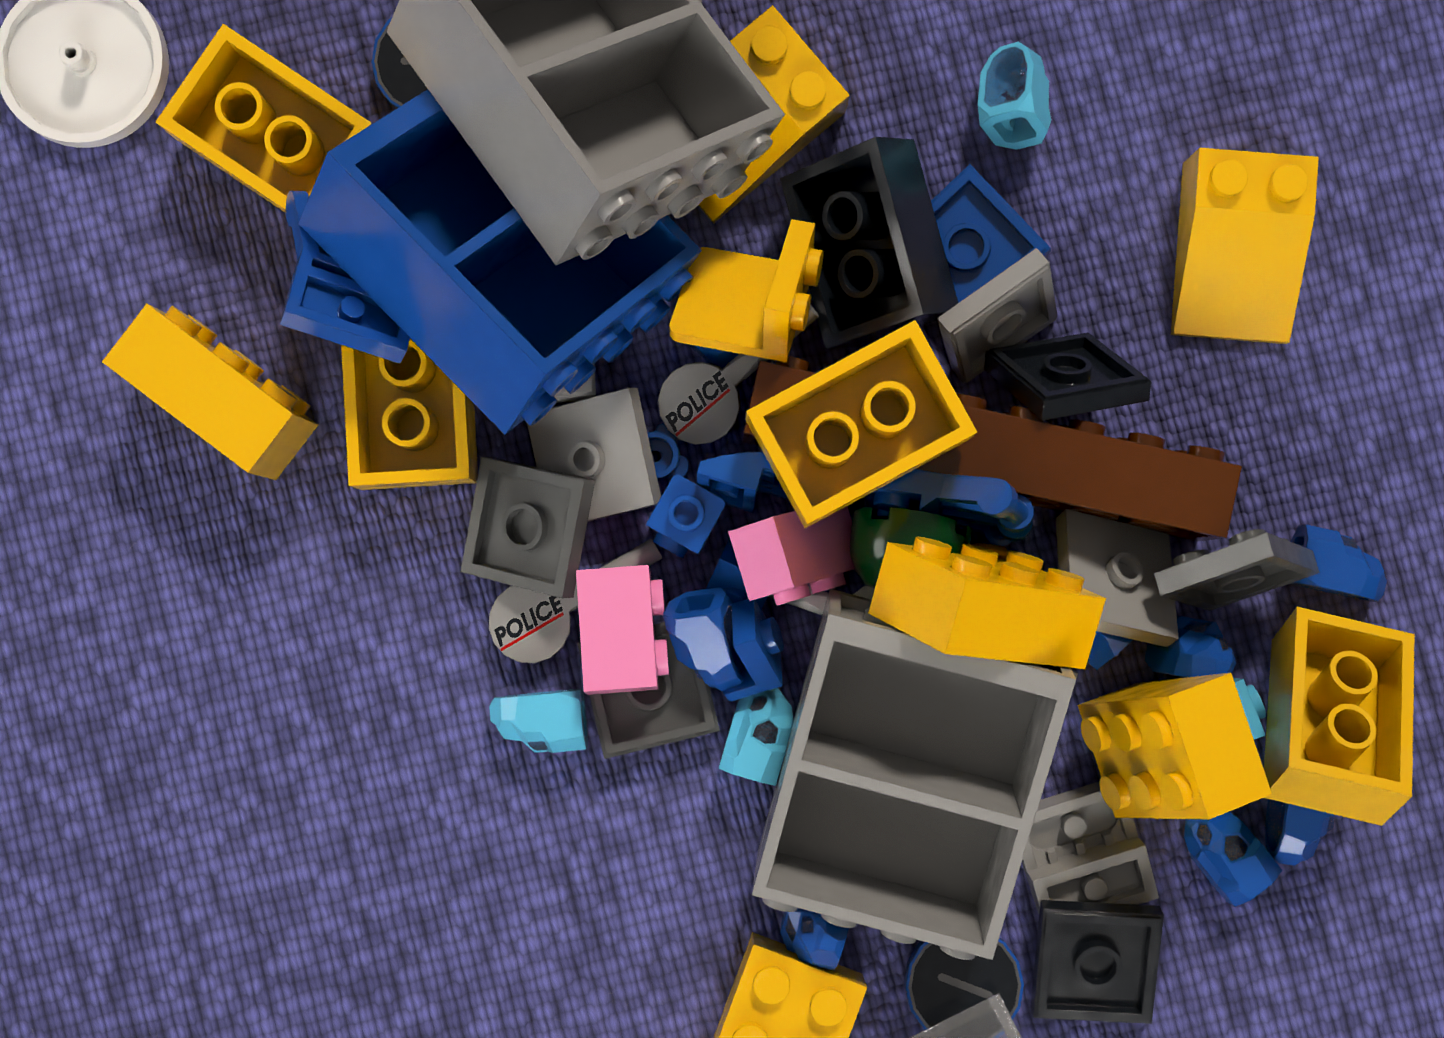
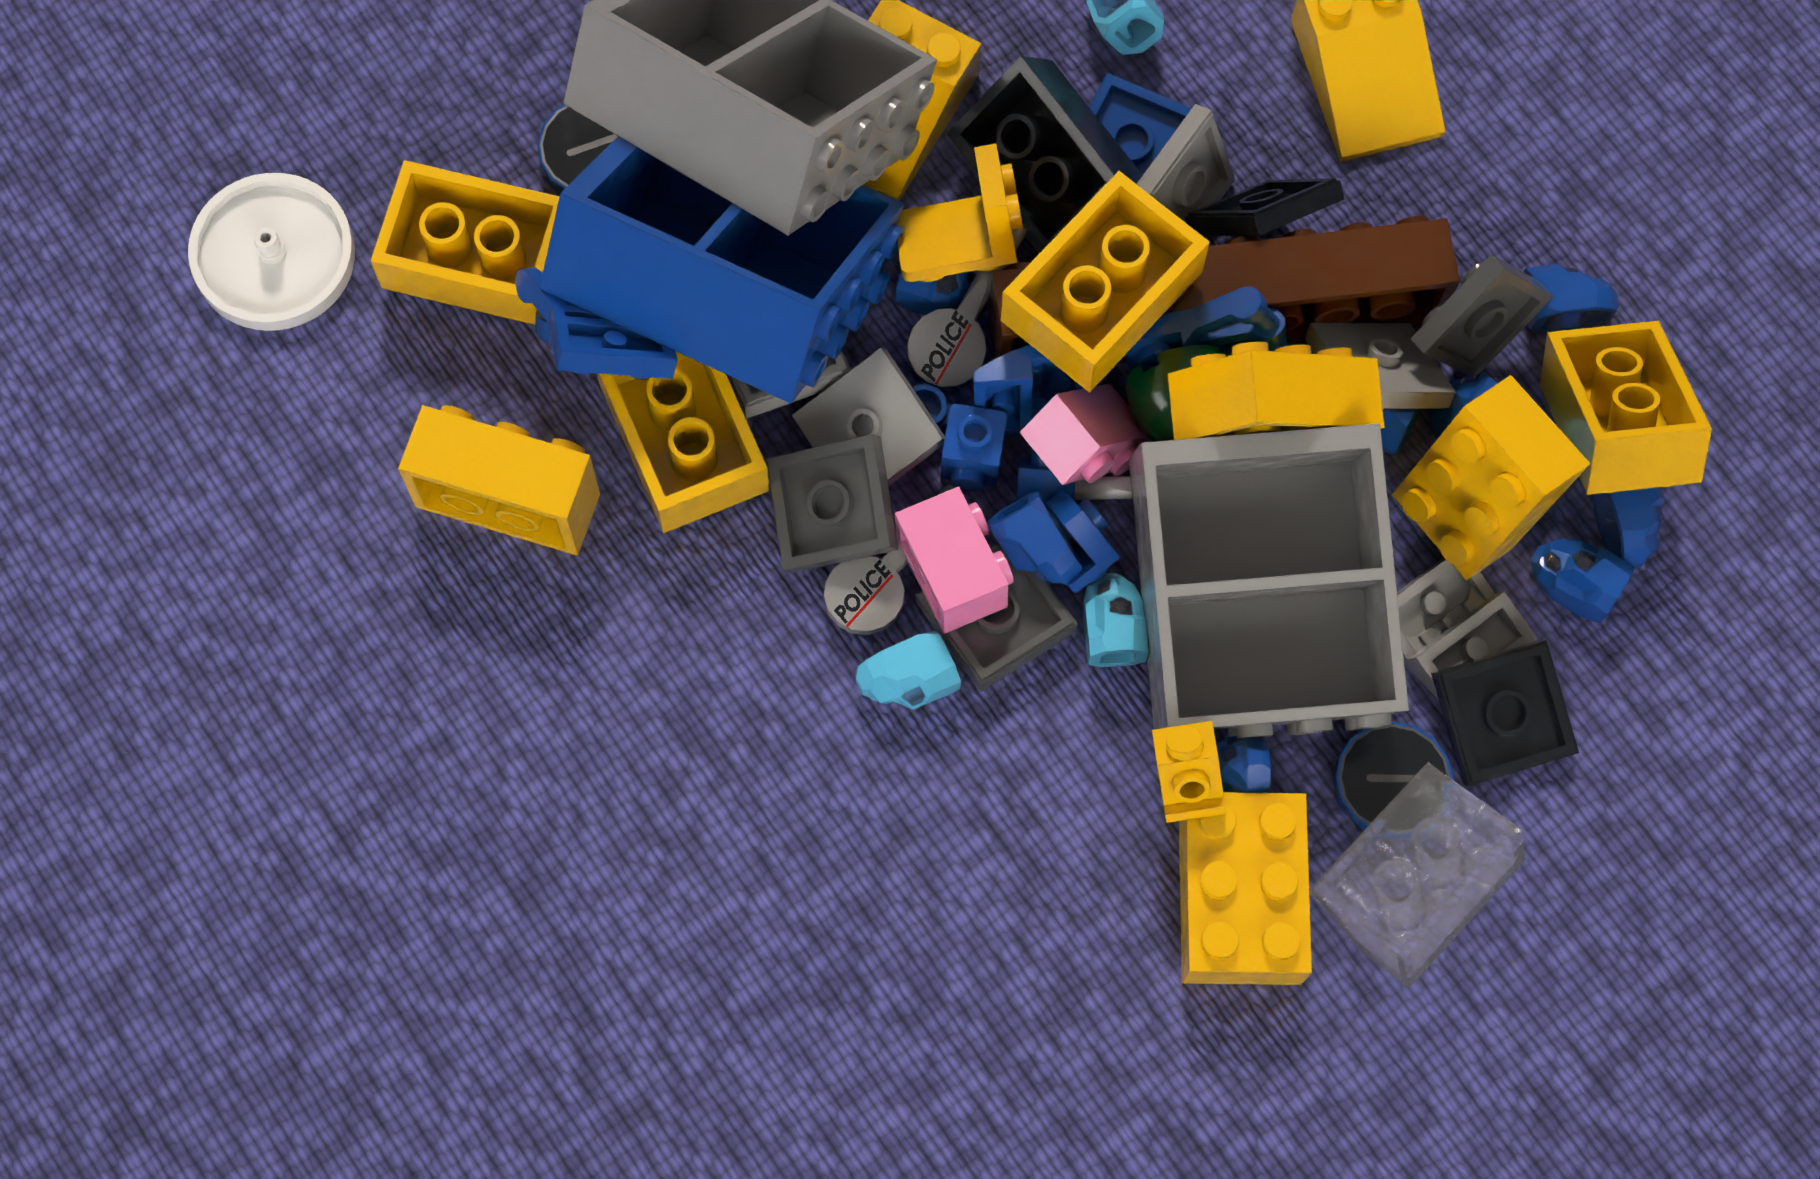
camera: 25 degrees left, 15 degrees down
(757, 938) = (1189, 771): none -> yellow brick

